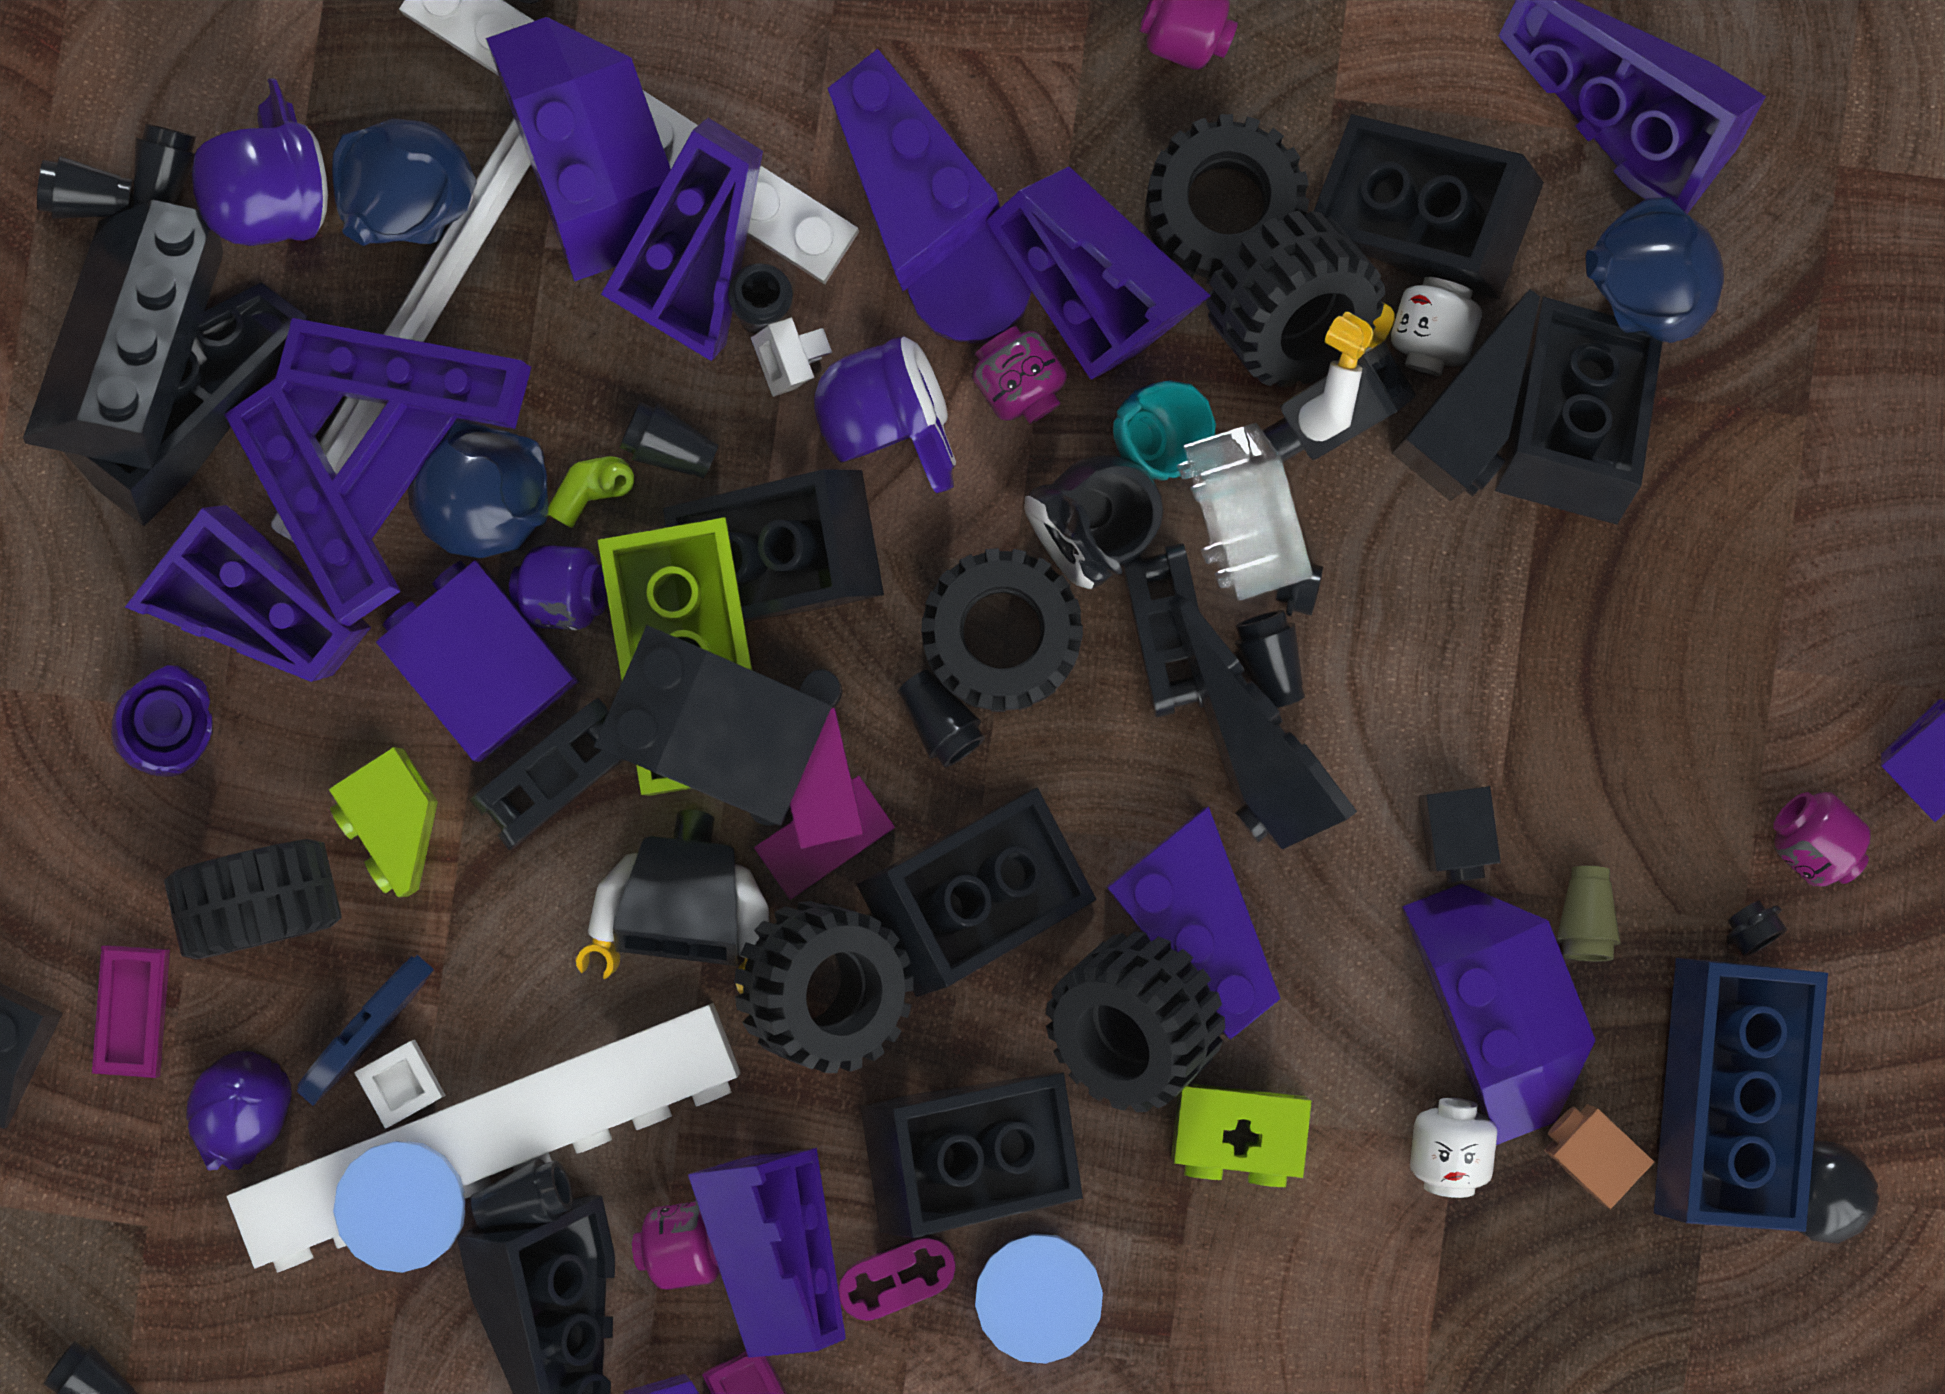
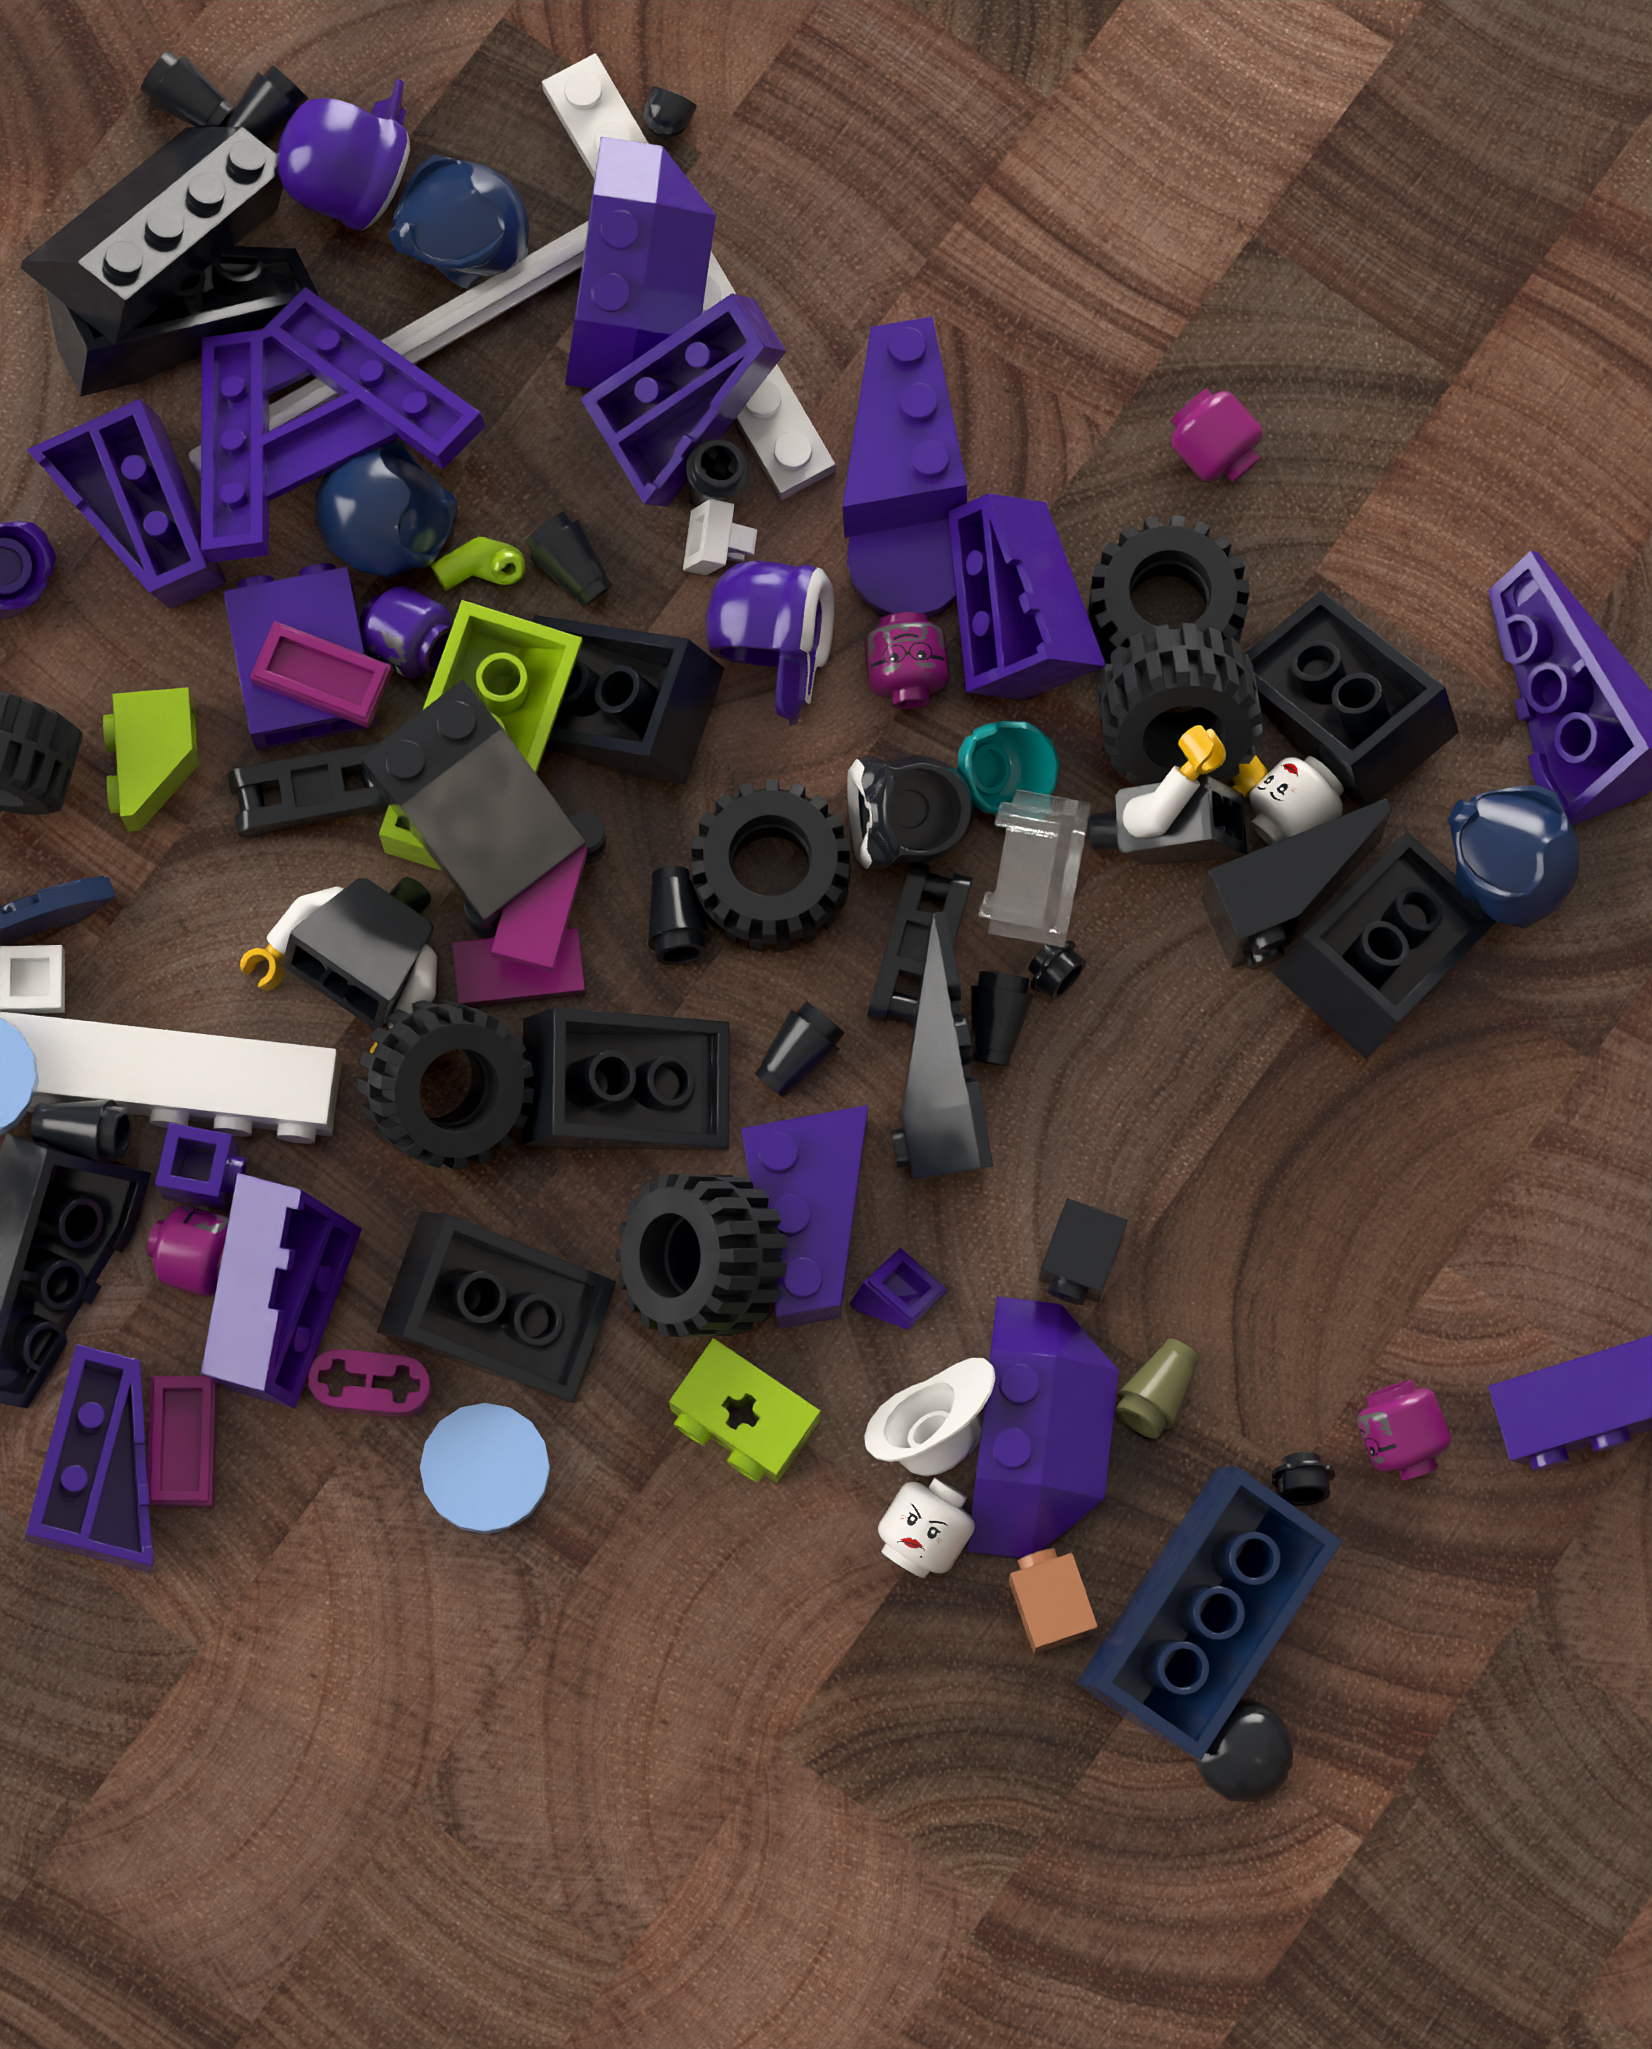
camera: 25 degrees right, 10 degrees down
(507, 673) = (321, 674): none -> magenta tile
(645, 1173) = (199, 1166): none -> dark purple brick
(1113, 779) = (799, 1048): none -> black cone
(1316, 949) = (898, 1291): none -> dark purple slope
(1410, 1052) = (933, 1421): none -> white piece

